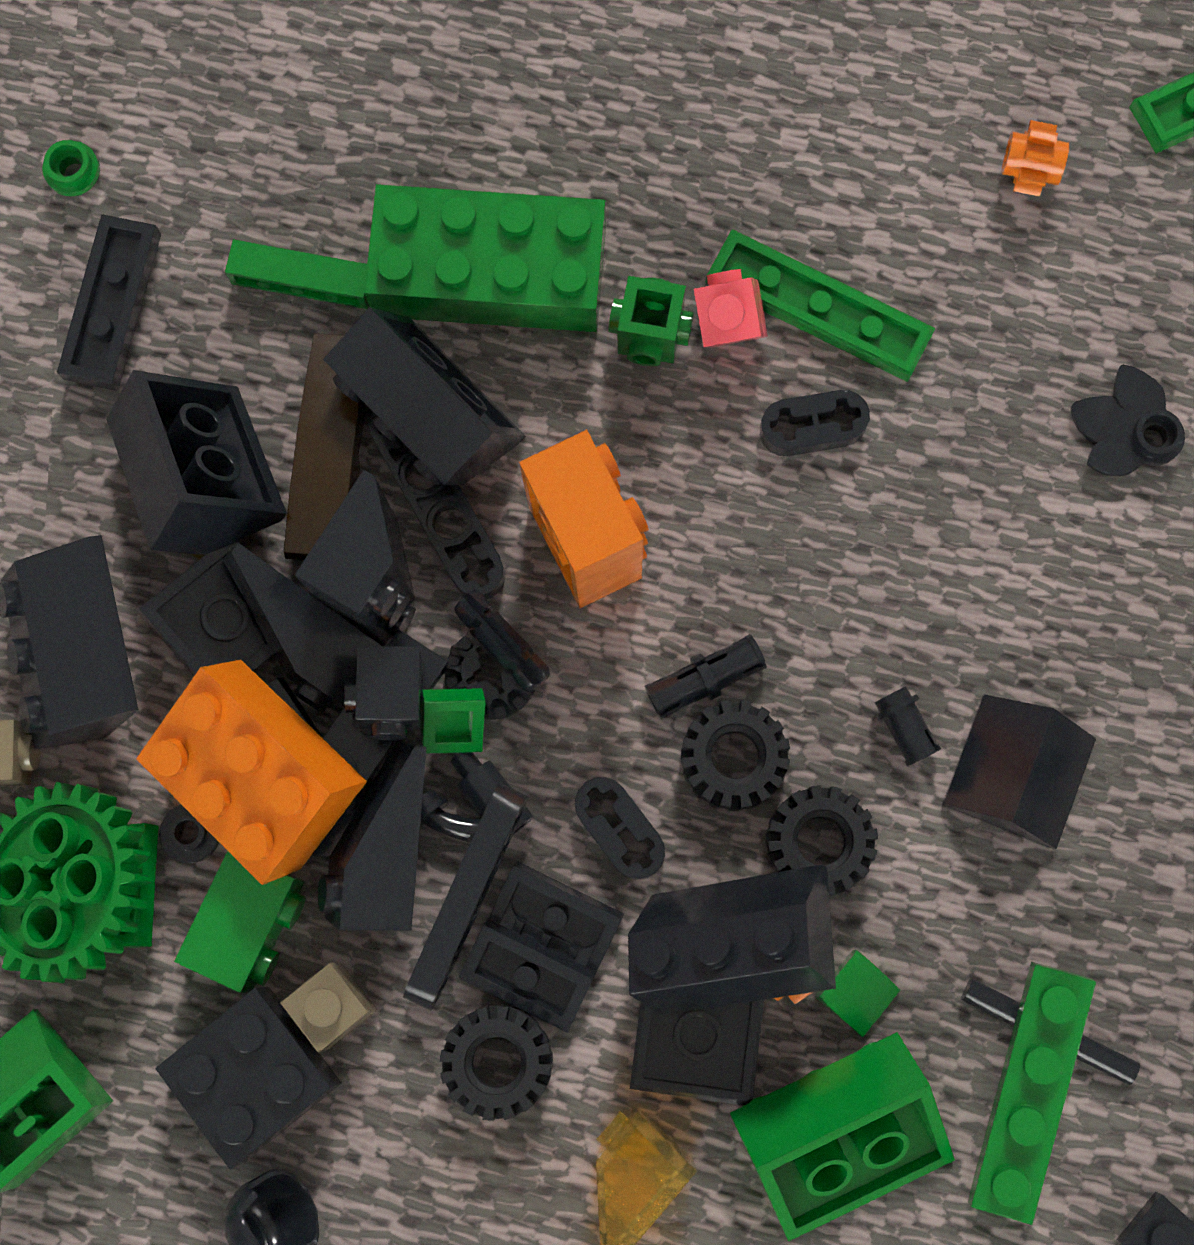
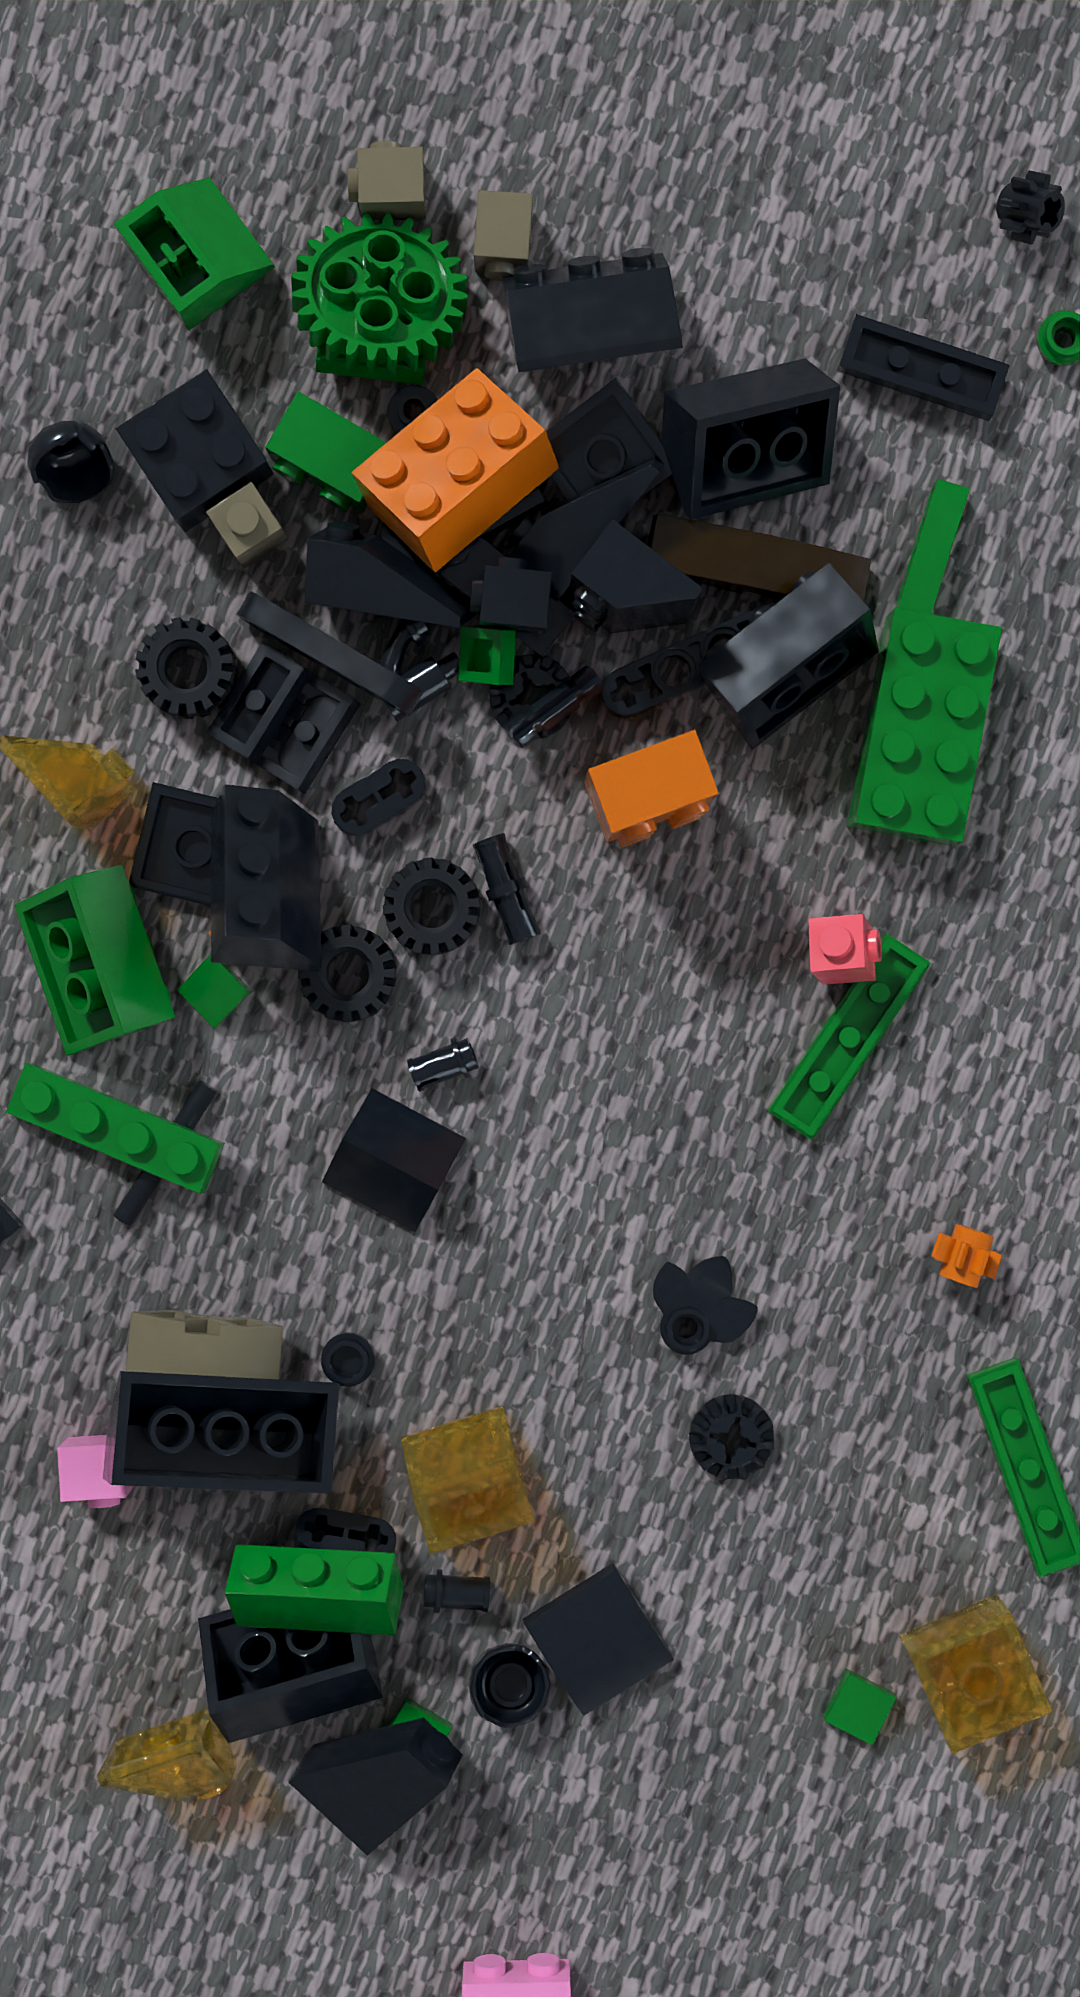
camera: 90 degrees right, 10 degrees up
(647, 303) = (863, 870): green brick -> none
(812, 409) = (747, 1017): black beam -> none

